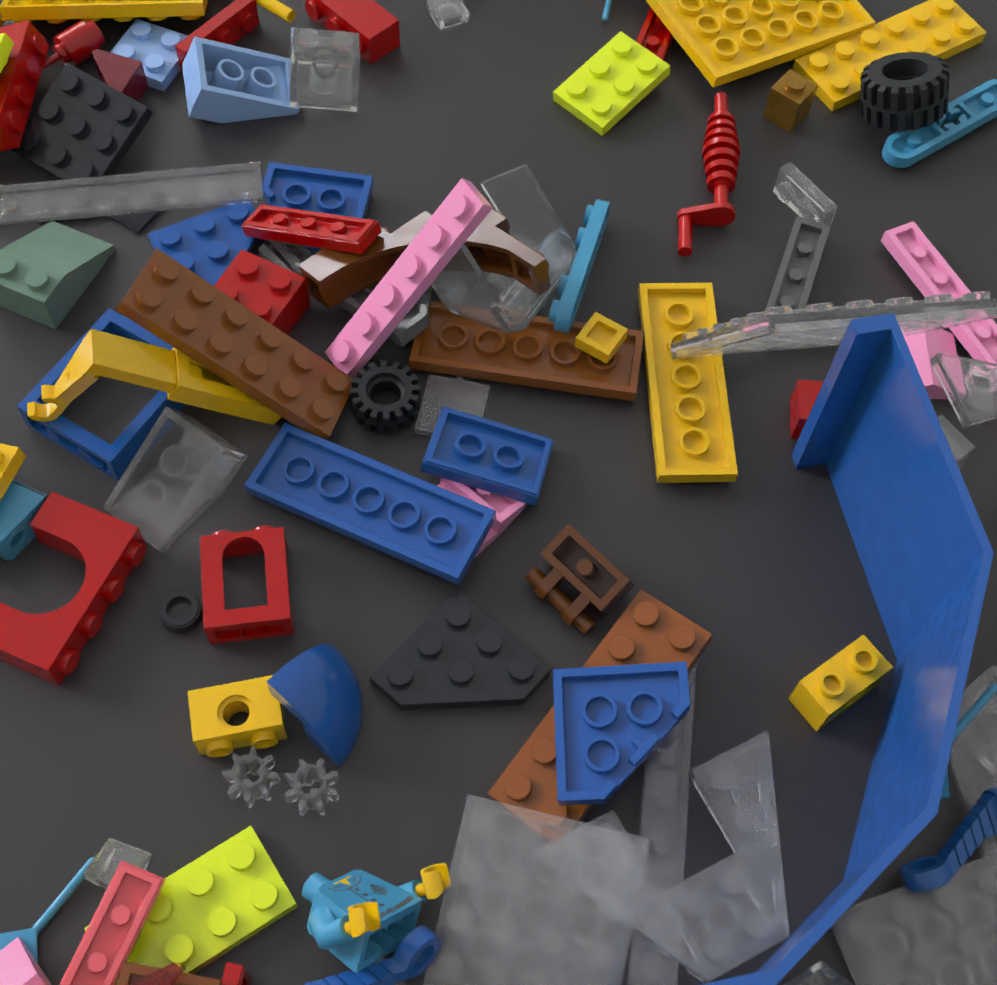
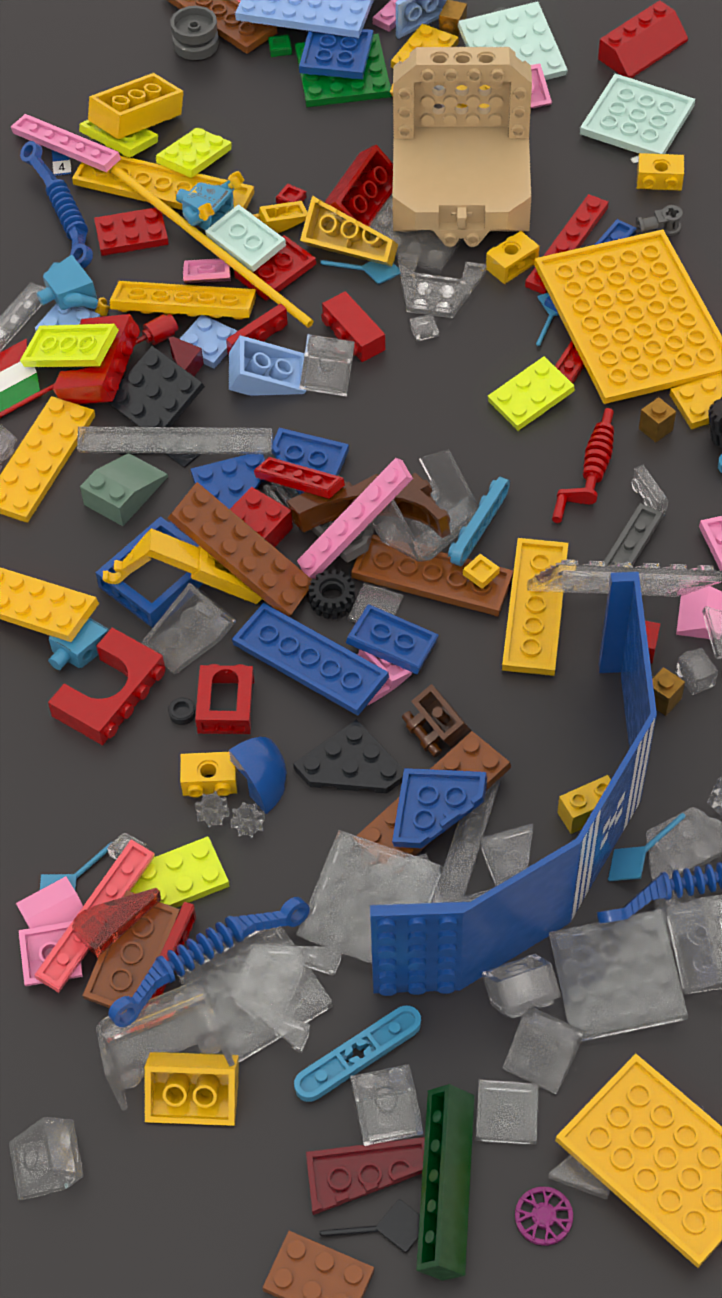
camera: 15 degrees right, 5 degrees down
(365, 916) = (267, 889): dark azure torso -> none

